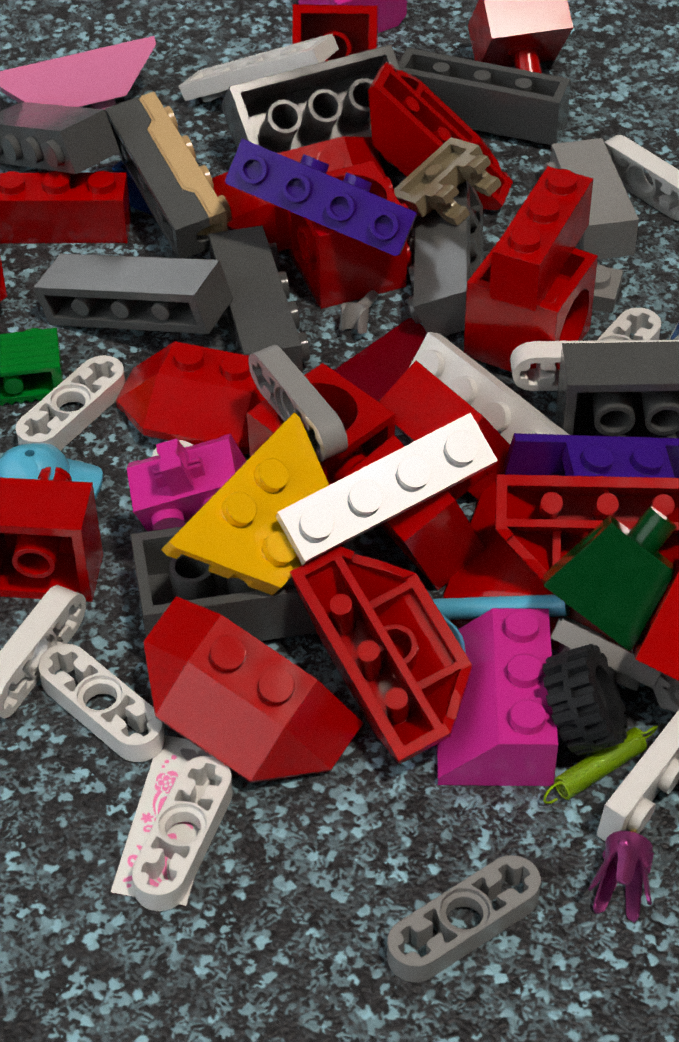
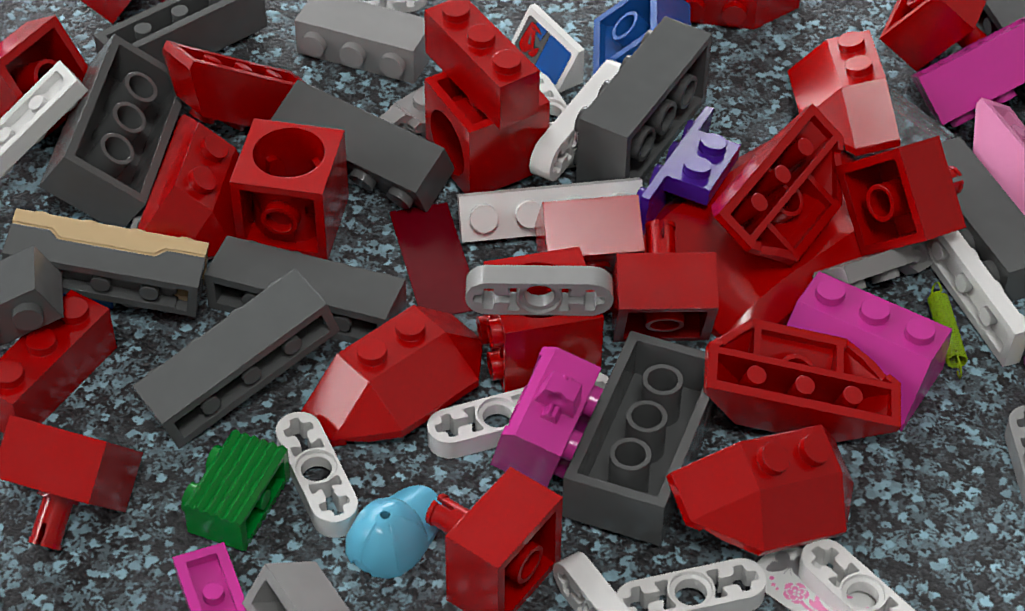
camera: 60 degrees left, 0 degrees up
(239, 524) = (637, 367): yellow wing -> none
(322, 198) = (295, 163): dark purple bracket -> none
(356, 314) = (370, 236): light grey hand -> none
(386, 488) = (687, 282): white plate -> none
(437, 178) = (294, 88): dark tan plate -> none
(476, 606) = (790, 290): medium azure bar -> none
(585, 699) = (916, 290): black tyre -> none
(616, 575) = (836, 210): dark green torso -> none

